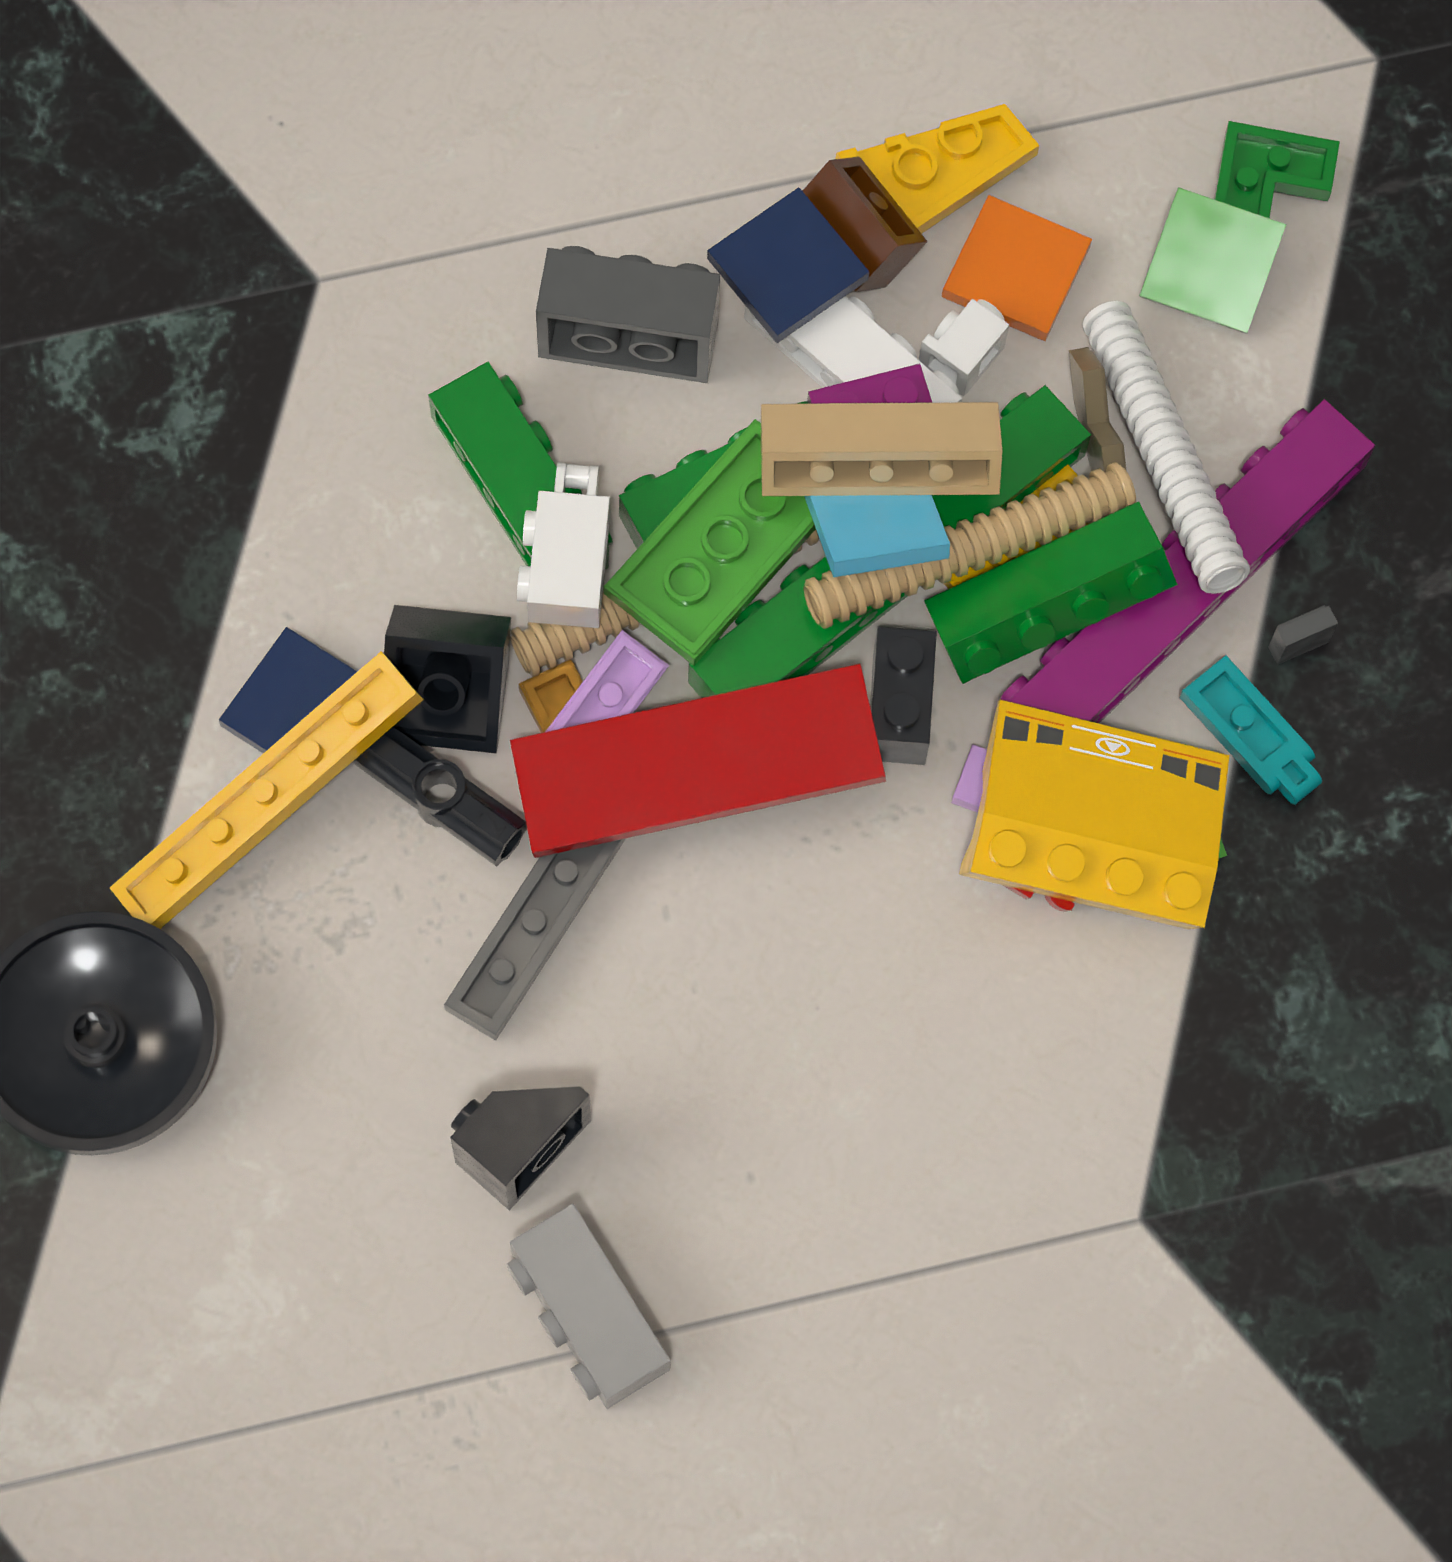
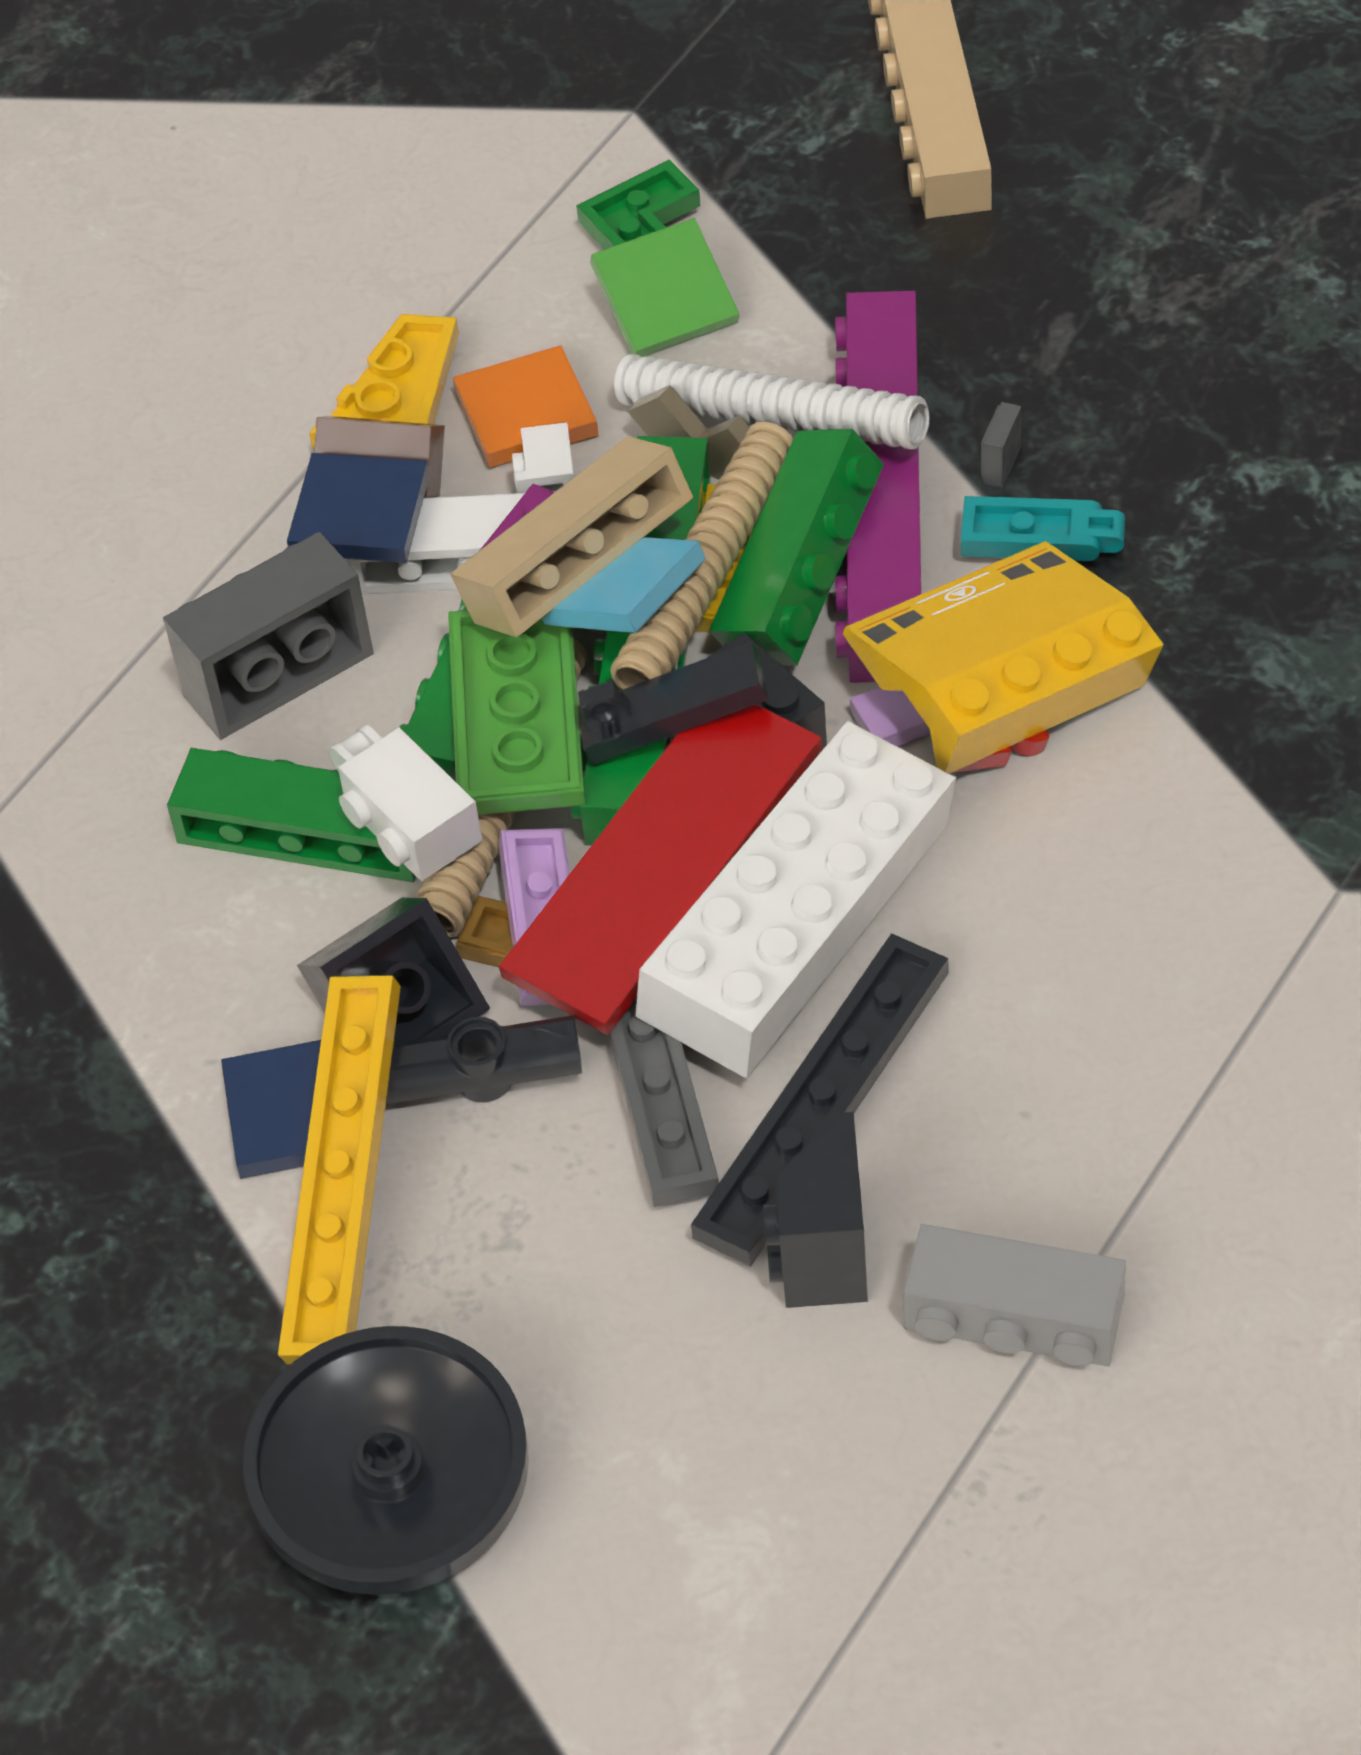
camera: 35 degrees left, 20 degrees down
(632, 1036) = (827, 1083): none -> black plate
(757, 876) = (794, 899): none -> white brick
(815, 650) = (669, 704): none -> black hinge

